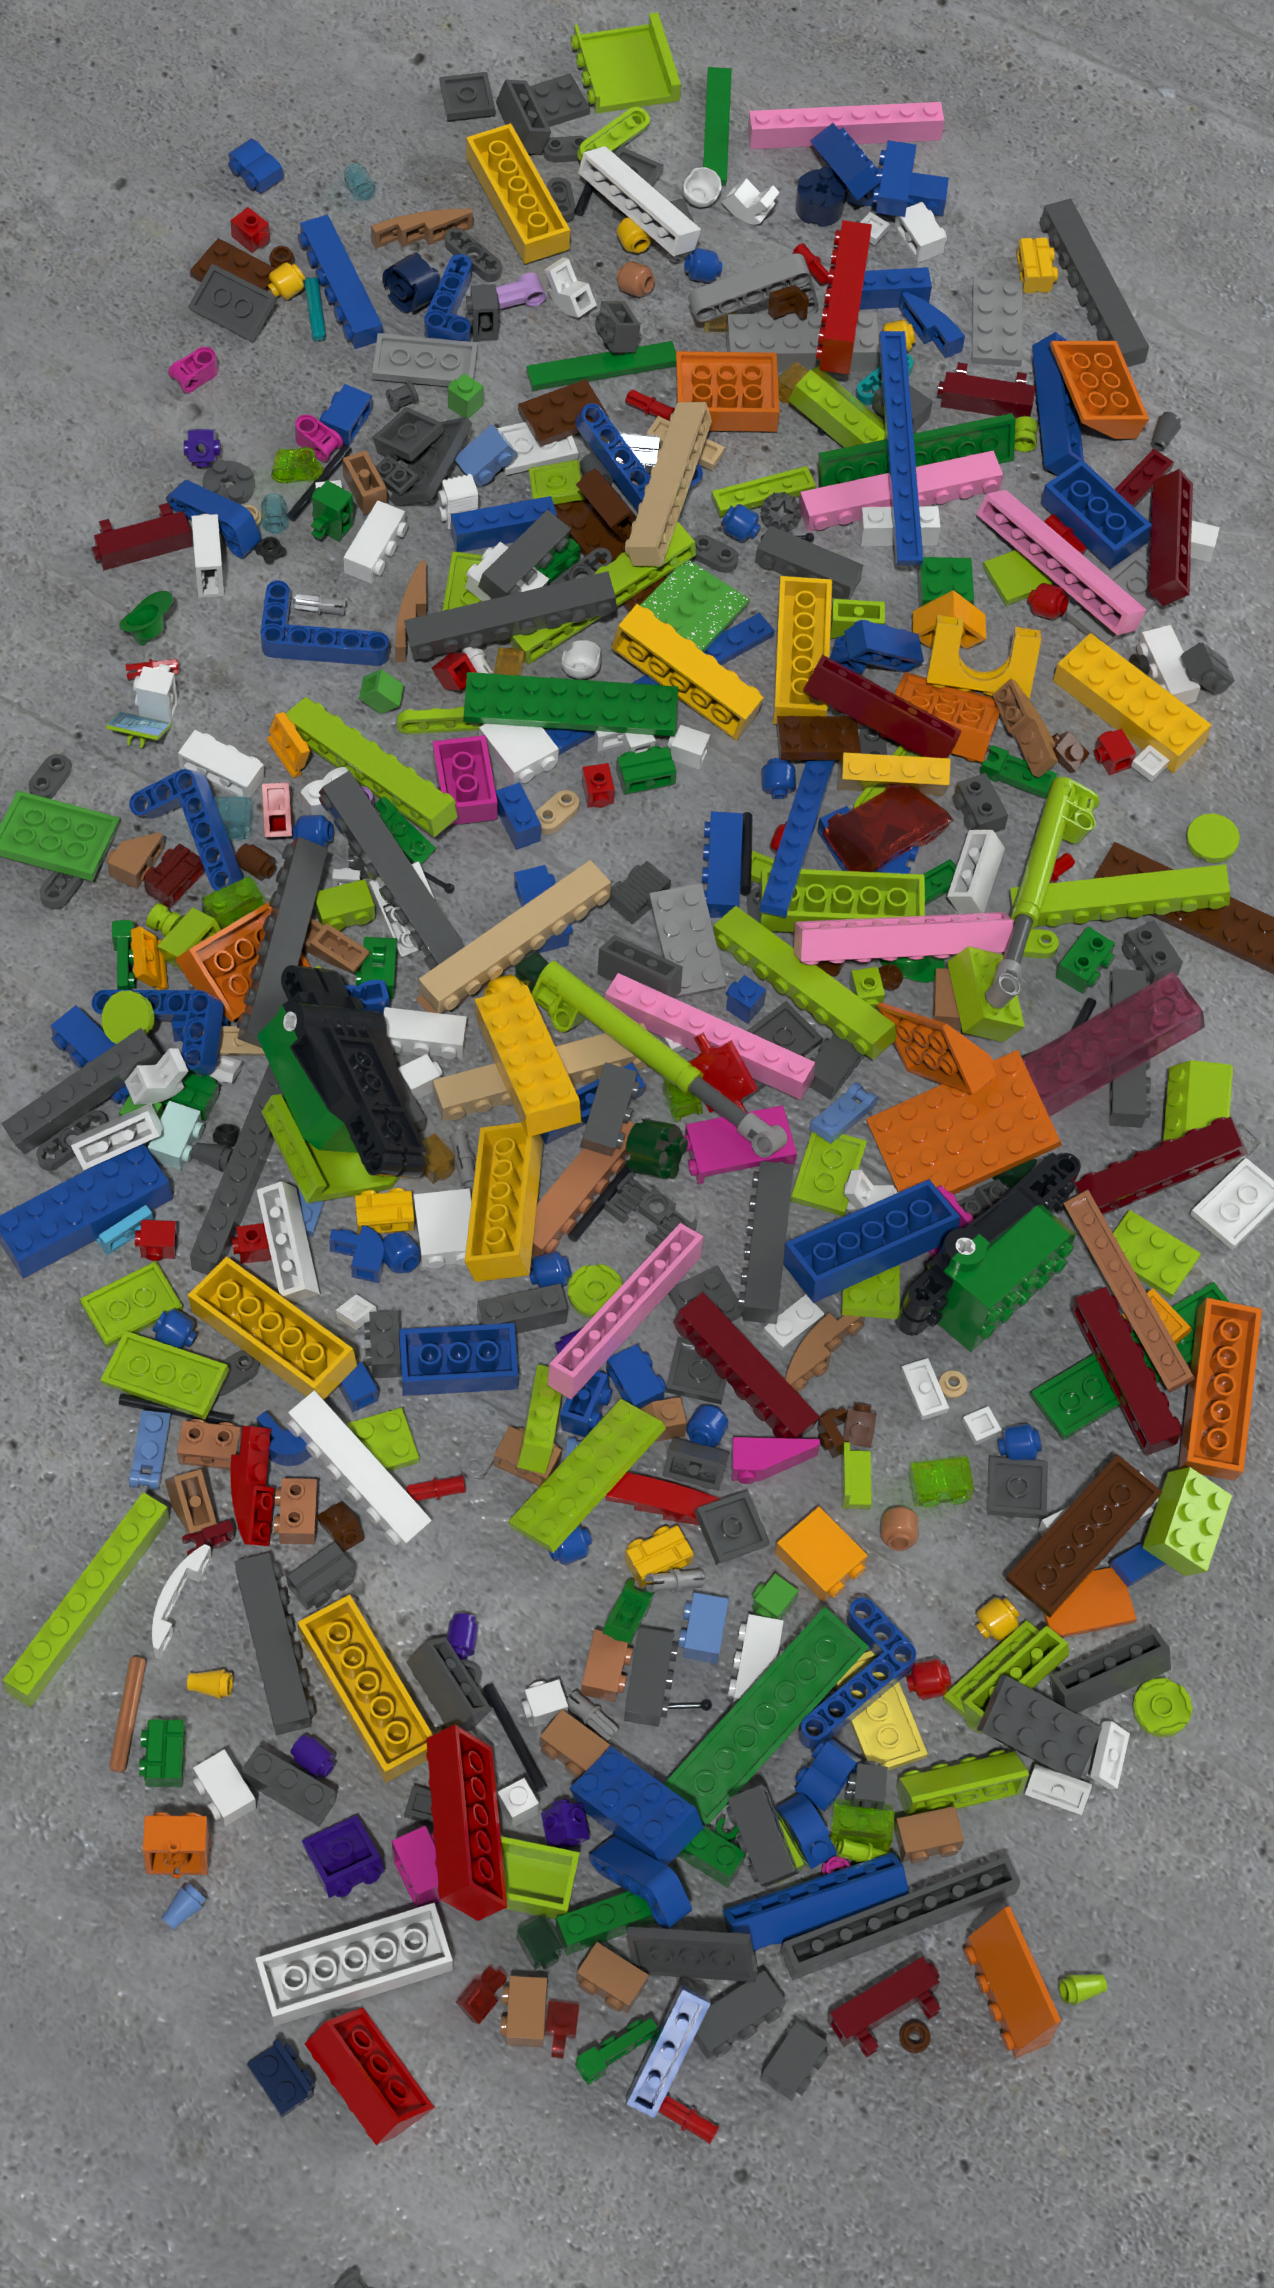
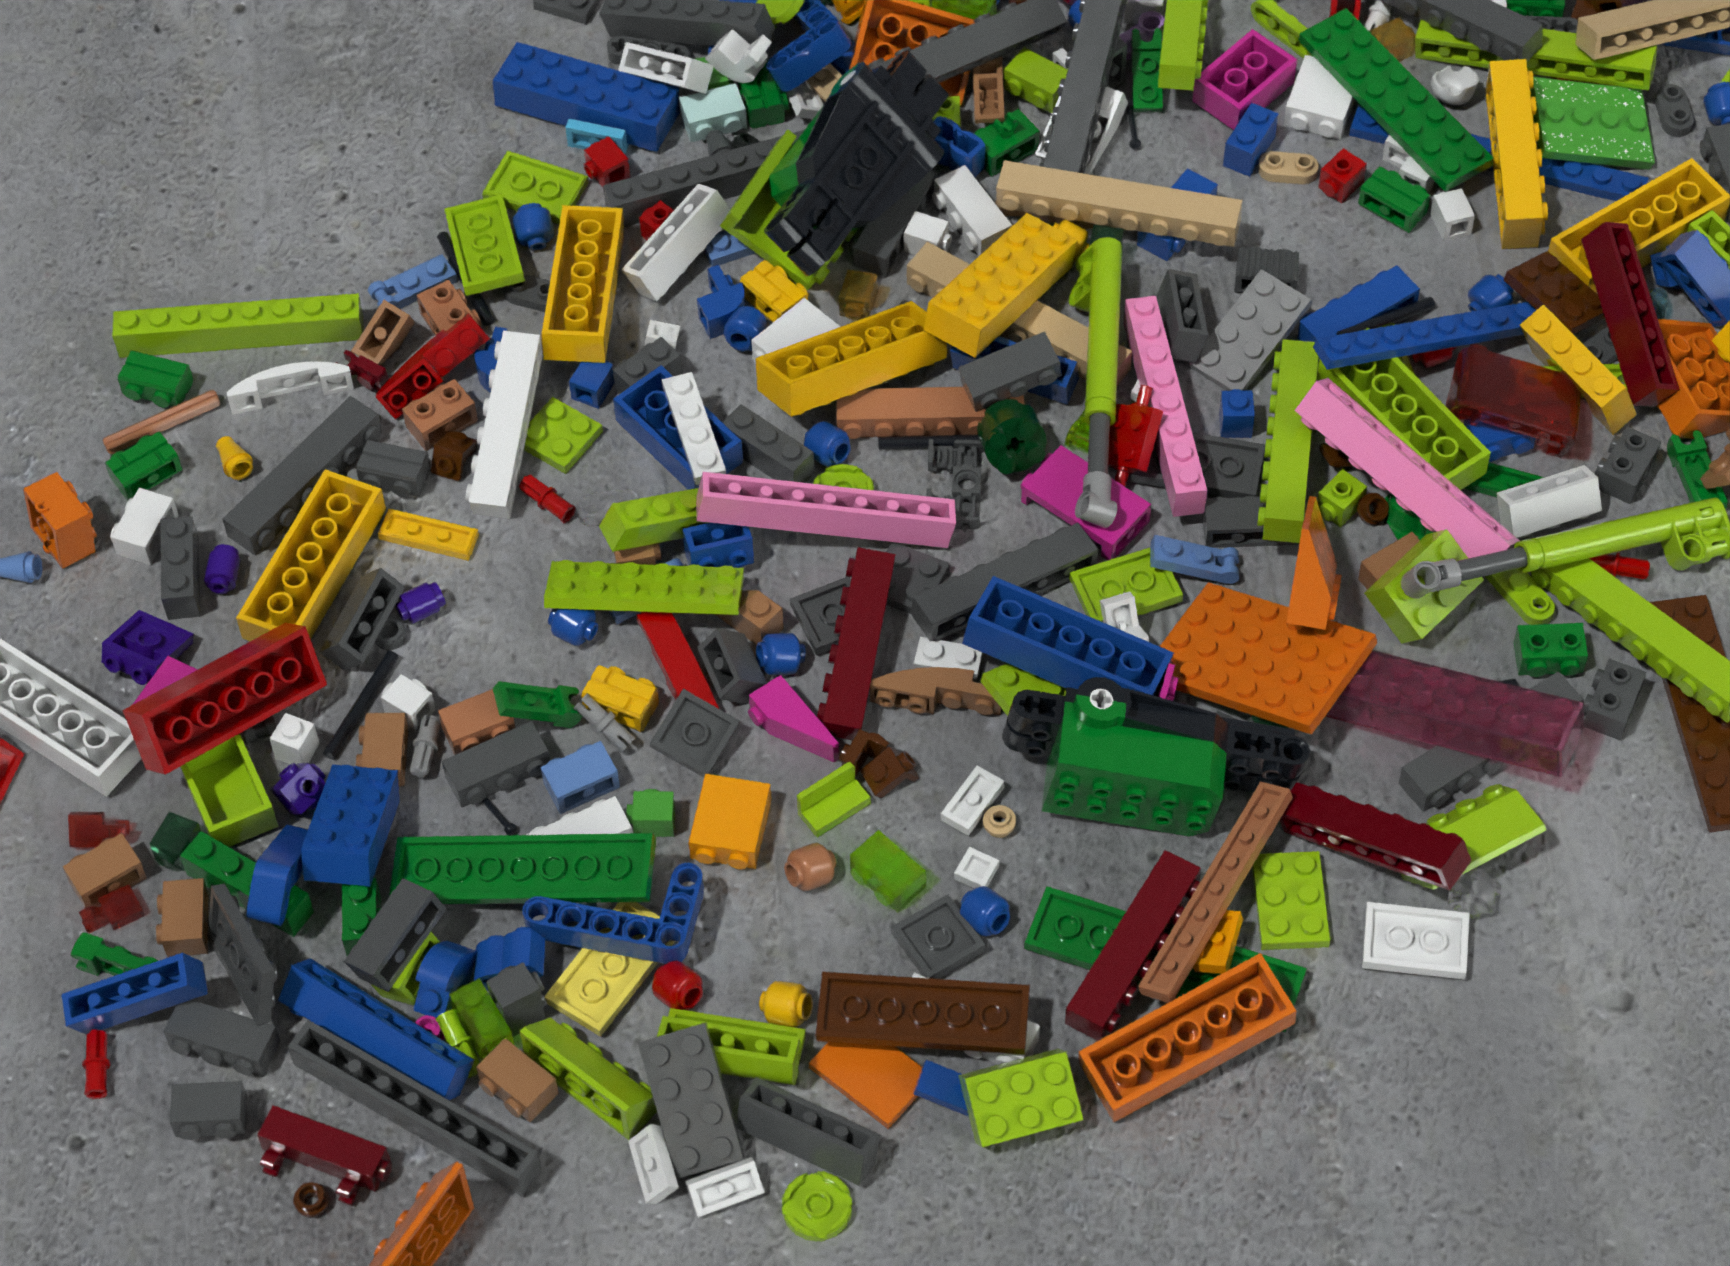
camera: 60 degrees right, 5 degrees down
(86, 1693) = (155, 379): none -> green brick
(398, 1591) = (428, 534): none -> yellow tile
(479, 1345) = (693, 425): none -> white plate
(634, 1377) = (780, 569): blue brick -> none

